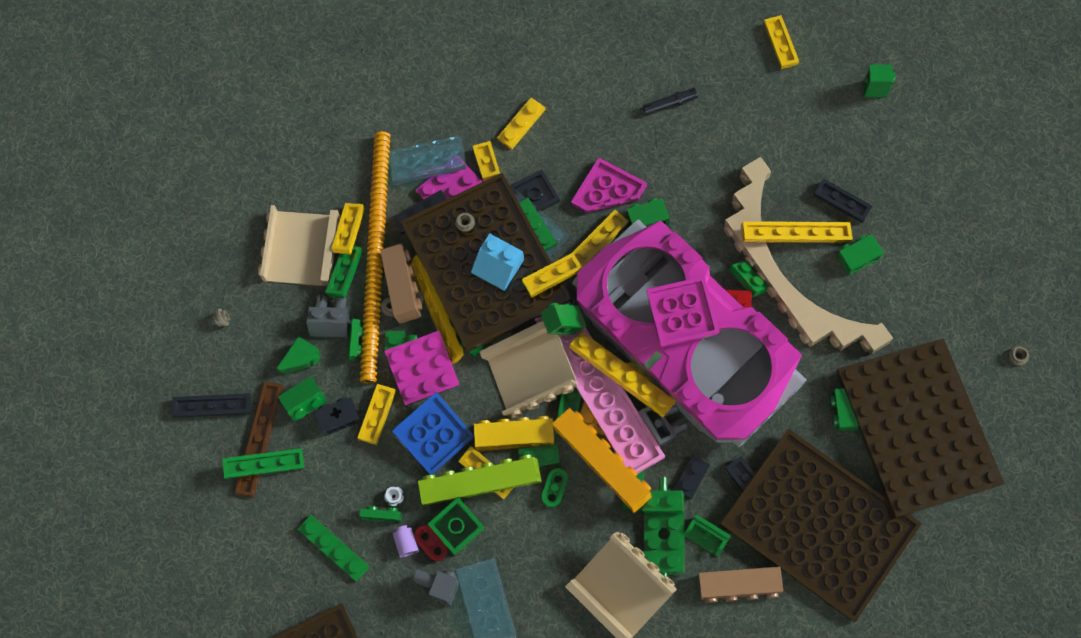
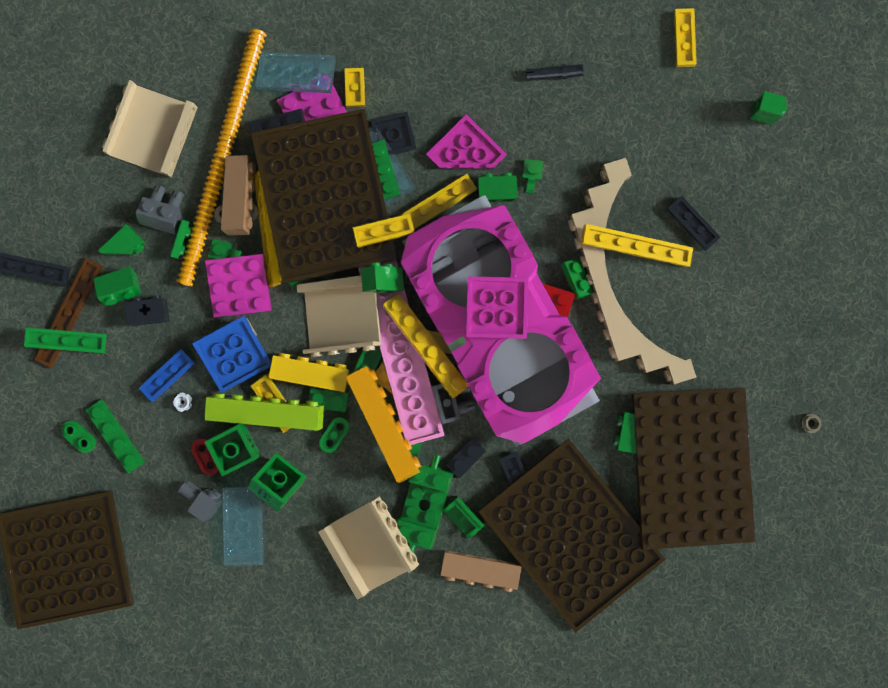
camera: 10 degrees right, 15 degrees up
(221, 318) = (57, 183): dark tan plate -> none
(295, 558) = (78, 435): none -> green plate
(343, 273) = (186, 167): green plate -> none
(348, 228) = (200, 123): yellow plate -> none
(372, 473) = (167, 375): none -> blue plate
(376, 414) = (185, 319): yellow plate -> none
(388, 515) = (158, 414): green plate -> none
(405, 541) = (182, 448): lavender brick -> none
(465, 217) = (313, 146): dark tan plate -> none
(497, 262) = (333, 203): medium azure slope -> none
(510, 546) = (276, 482): none -> green brick
(521, 123) = (400, 56): yellow plate -> none
(676, 194) = (532, 172): none -> green plate
(859, 254) = (692, 283): green brick -> none

